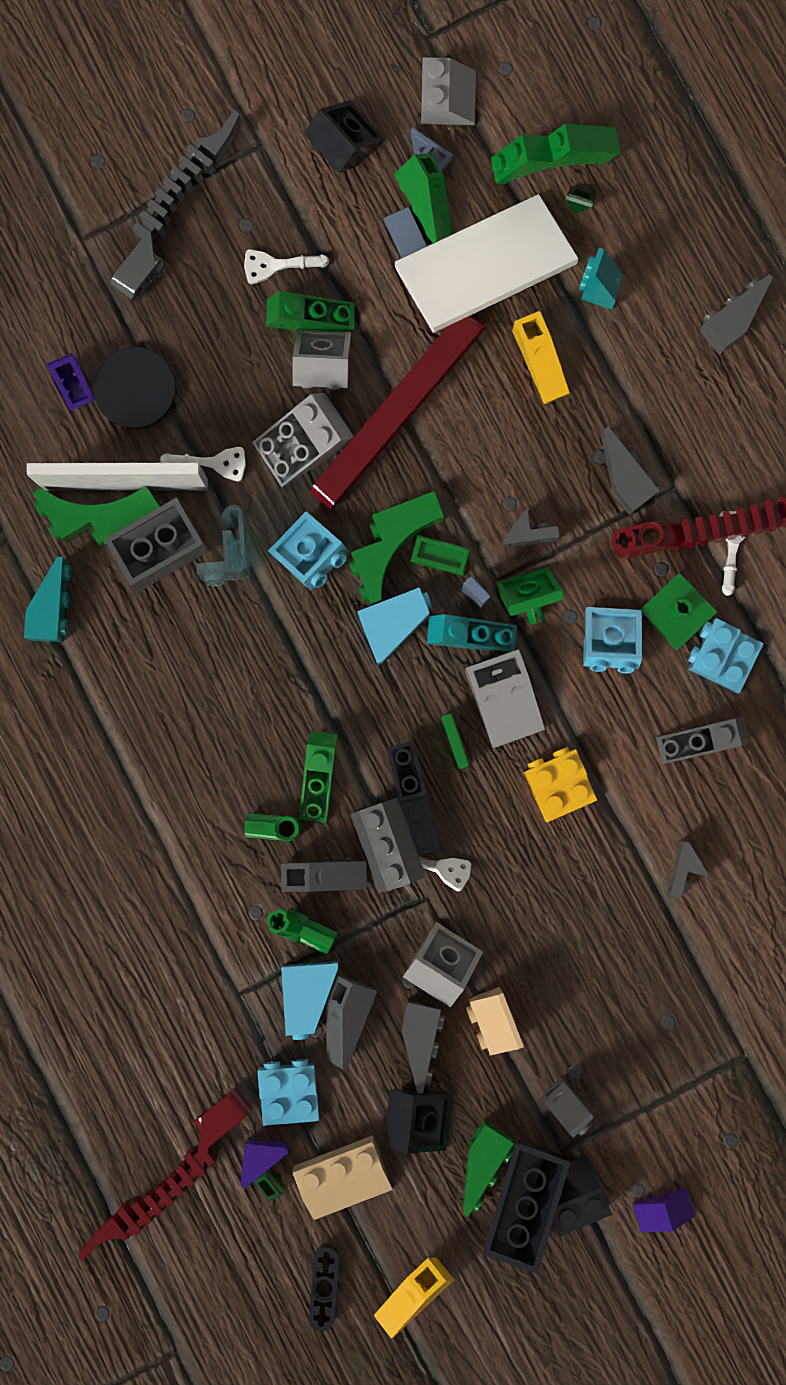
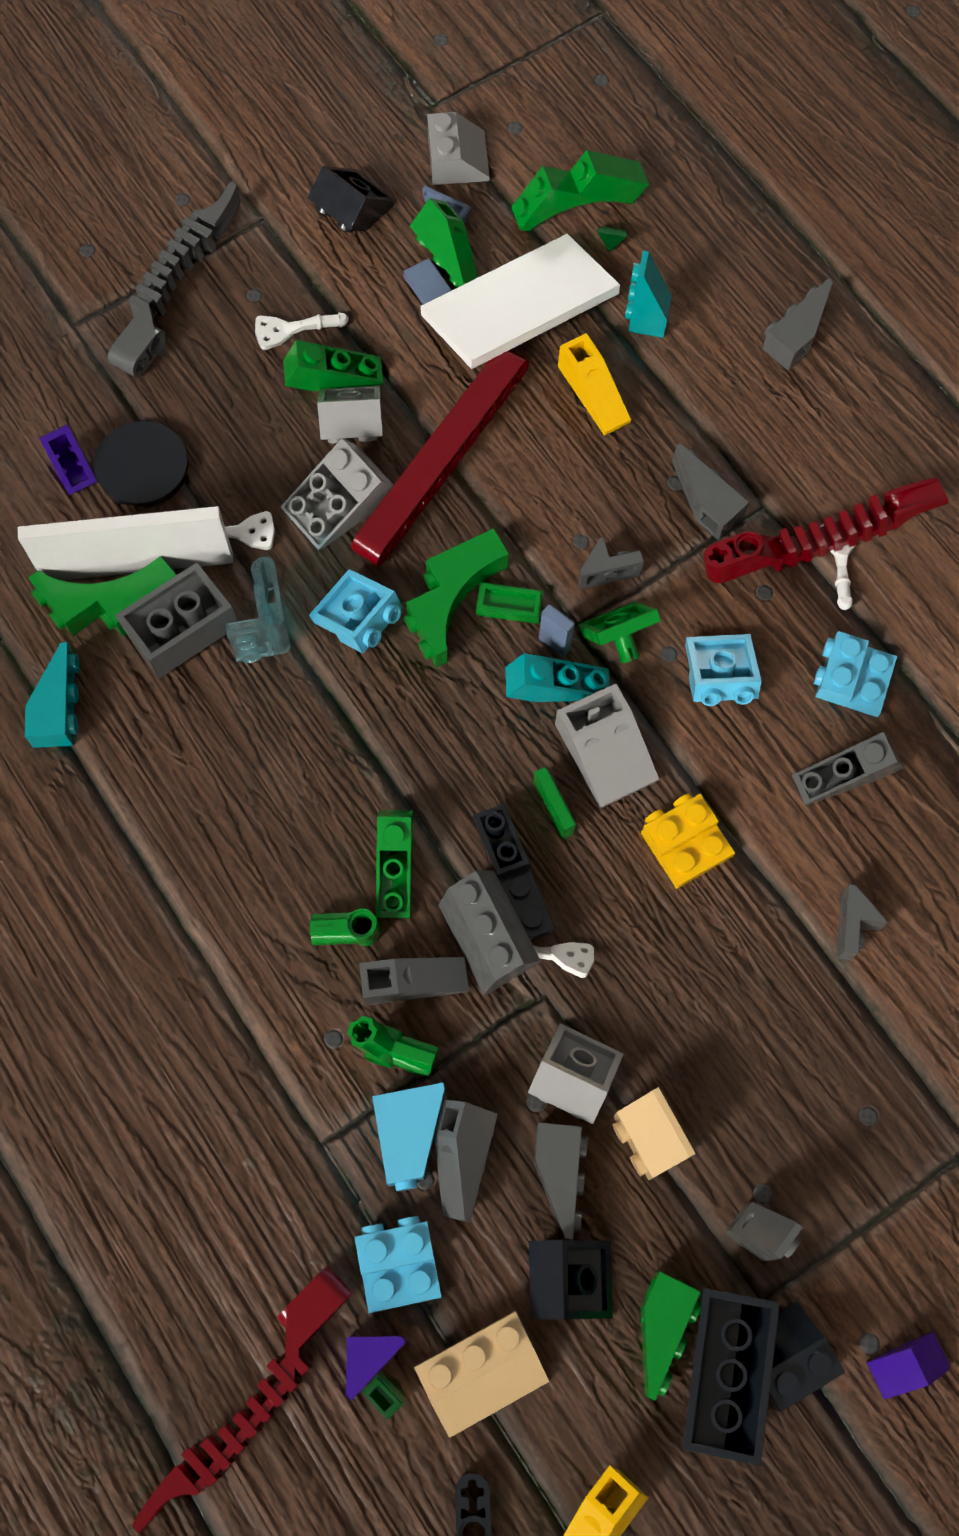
camera: 10 degrees left, 15 degrees down
(393, 622) = (464, 677): medium azure slope -> none
(677, 611) = (791, 634): green tile -> none

